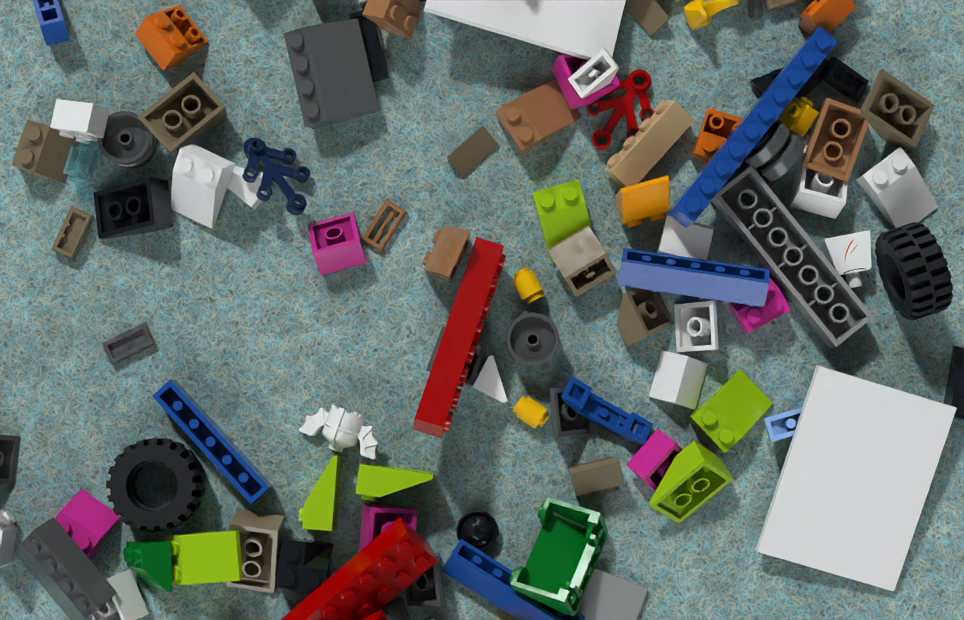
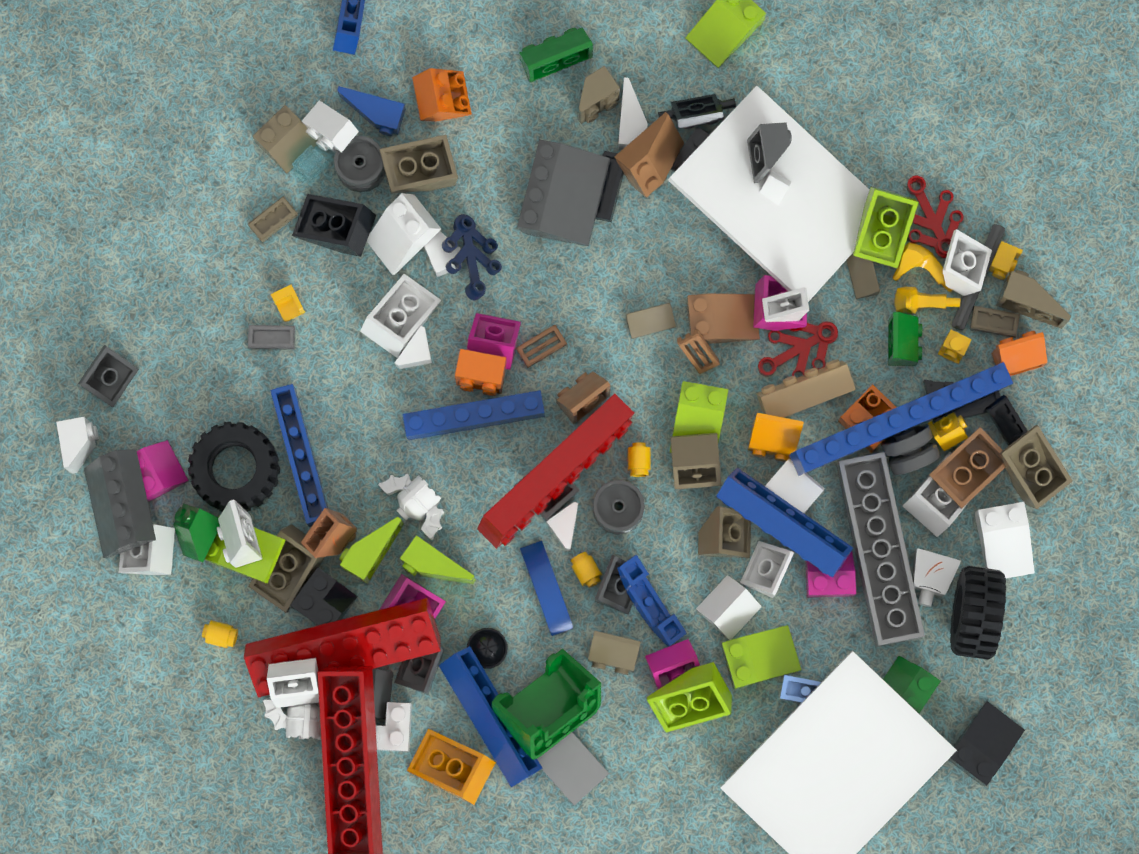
camera: 30 degrees right, 5 degrees down
(121, 81) = (378, 111): none -> blue slope
(127, 304) = (287, 303): none -> yellow panel
(193, 551) = (239, 536): none -> white slope
(238, 263) = (399, 315): none -> white slope
(270, 289) = (416, 351): none -> white slope
(277, 503) = (329, 534): none -> nougat torso
(340, 279) = (480, 372): none -> orange slope
(354, 322) = (473, 415): none -> blue brick
(503, 447) = (546, 588): none -> blue slope
(520, 150) = (691, 339): none -> medium nougat tile
(713, 52) = (903, 340): none -> green slope
(763, 34) = (954, 346): none -> yellow brick
(880, 365) = (911, 682): none -> green slope

